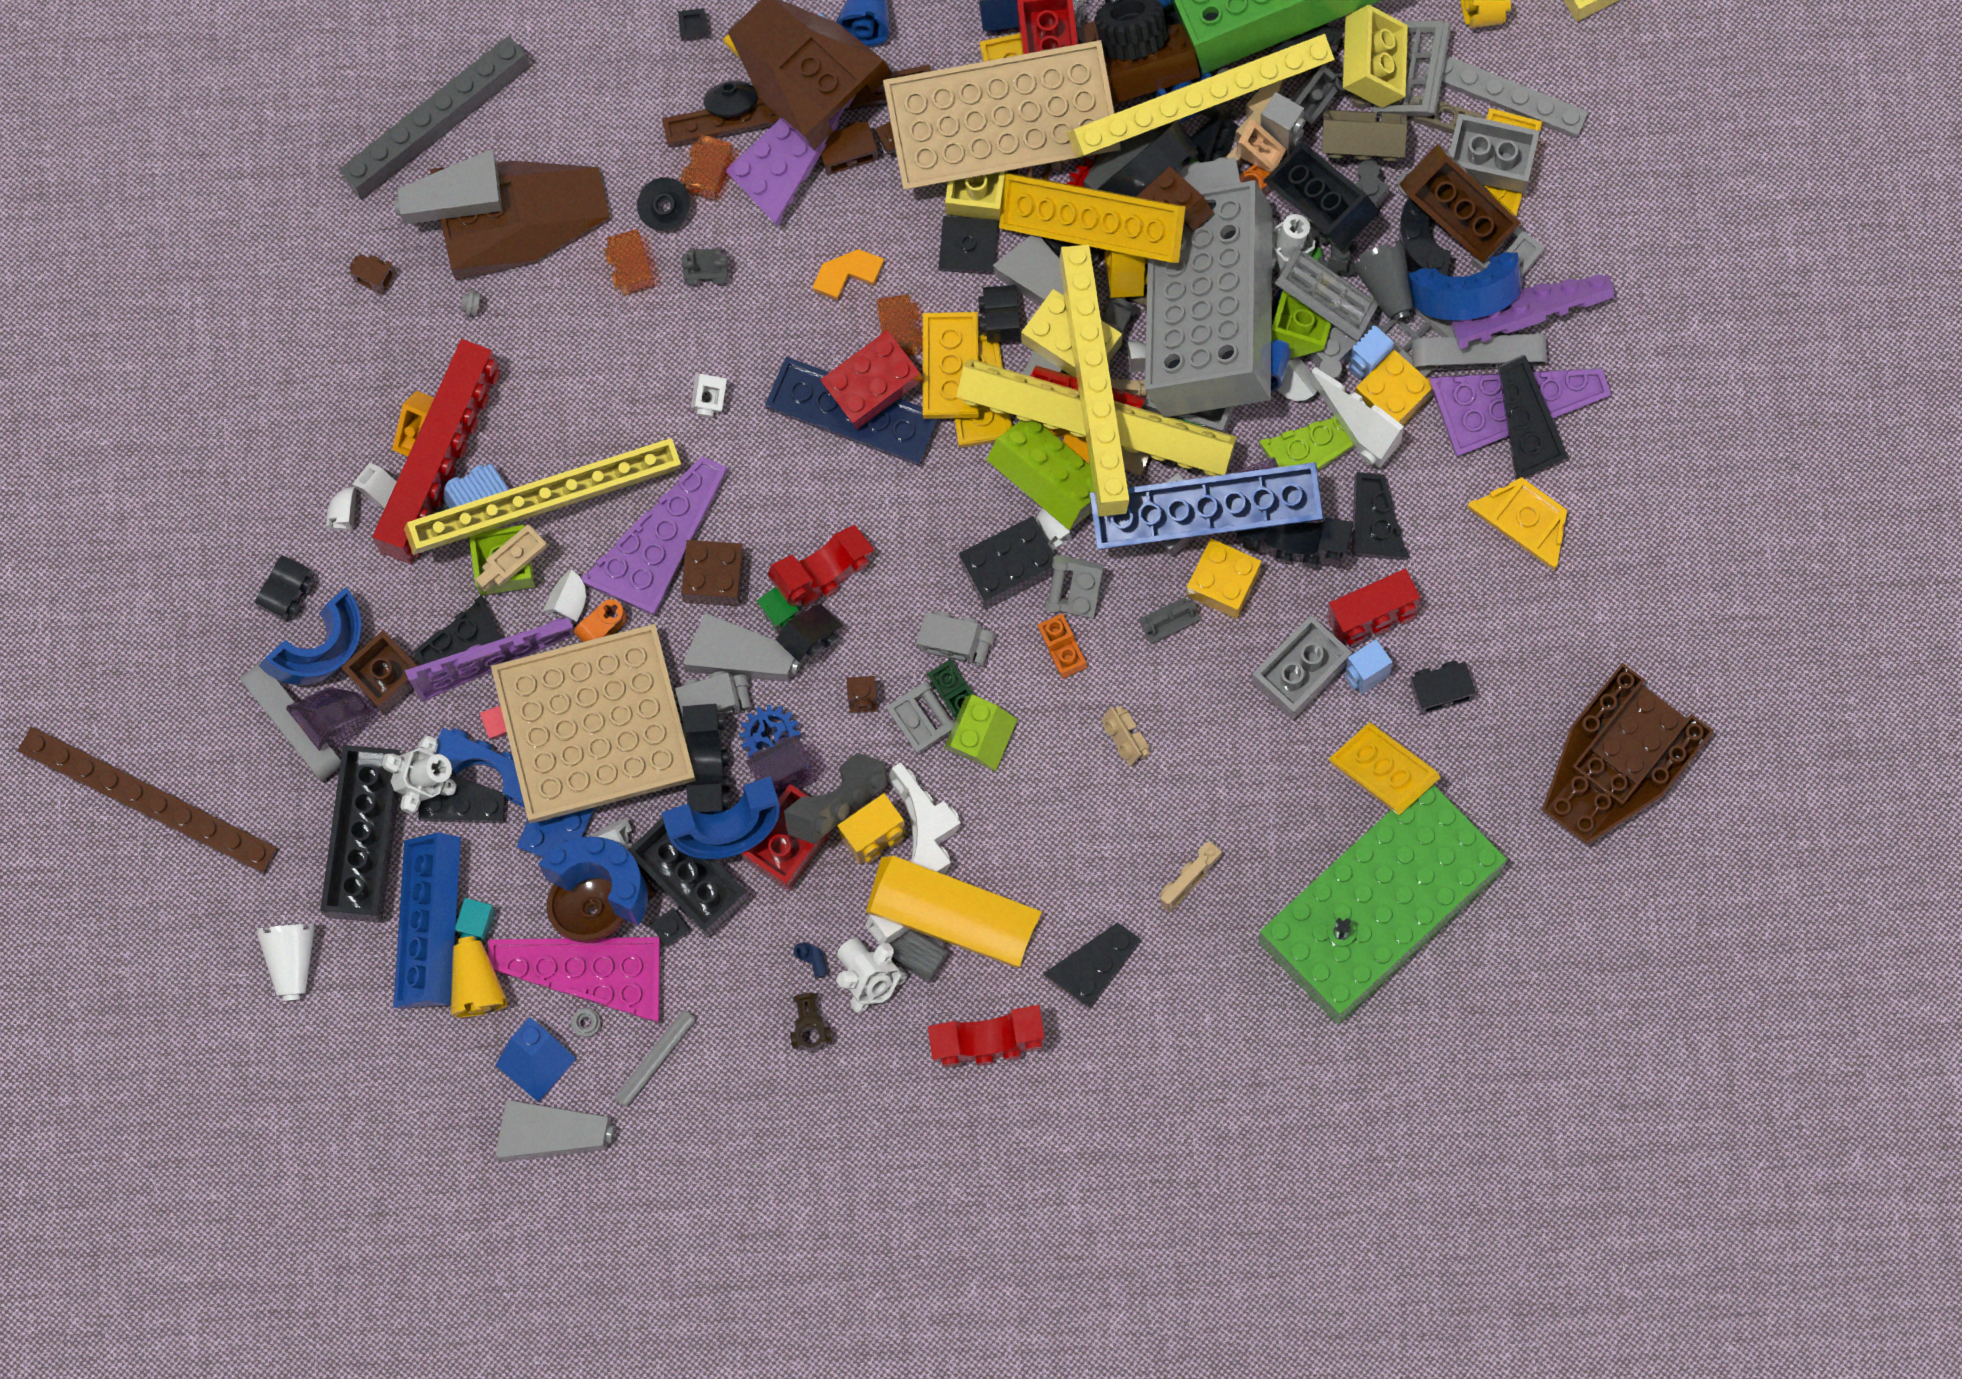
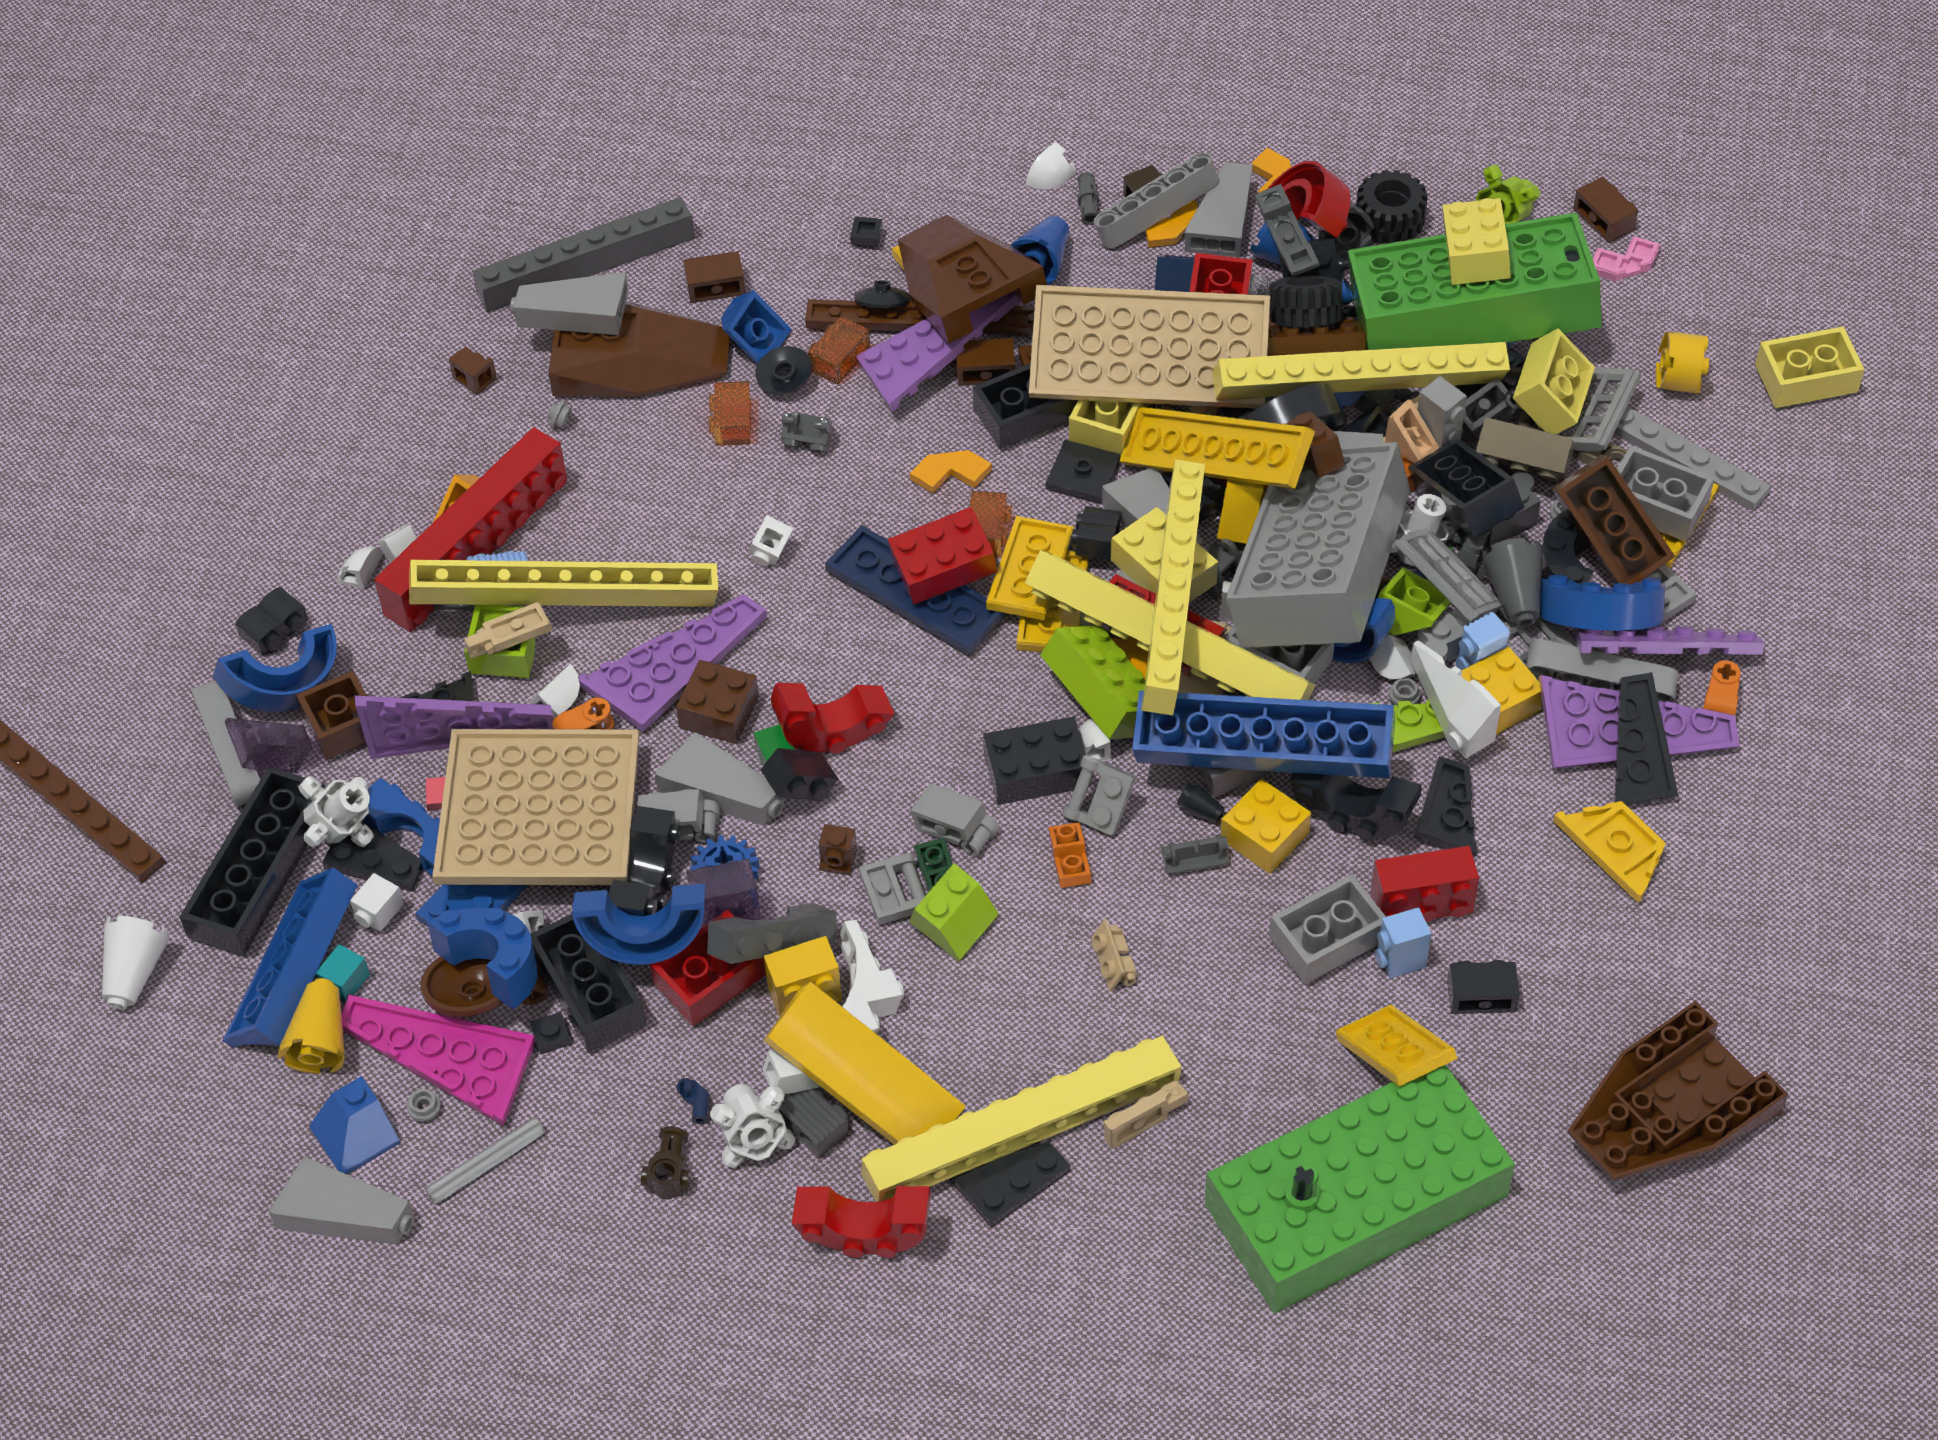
camera: 10 degrees right, 20 degrees down
(481, 848) = (376, 902): none -> white brick
(565, 112) = (714, 277): none -> reddish brown brick
(620, 162) = (754, 325): none -> blue slope
(882, 197) = (1010, 413): none -> black brick
(1091, 912) = (1021, 1119): none -> light yellow brick
(1162, 568) = (1200, 803): none -> black cone
(1311, 403) = (1404, 686): none -> light grey plate
(1586, 348) = (1723, 688): none -> orange piece

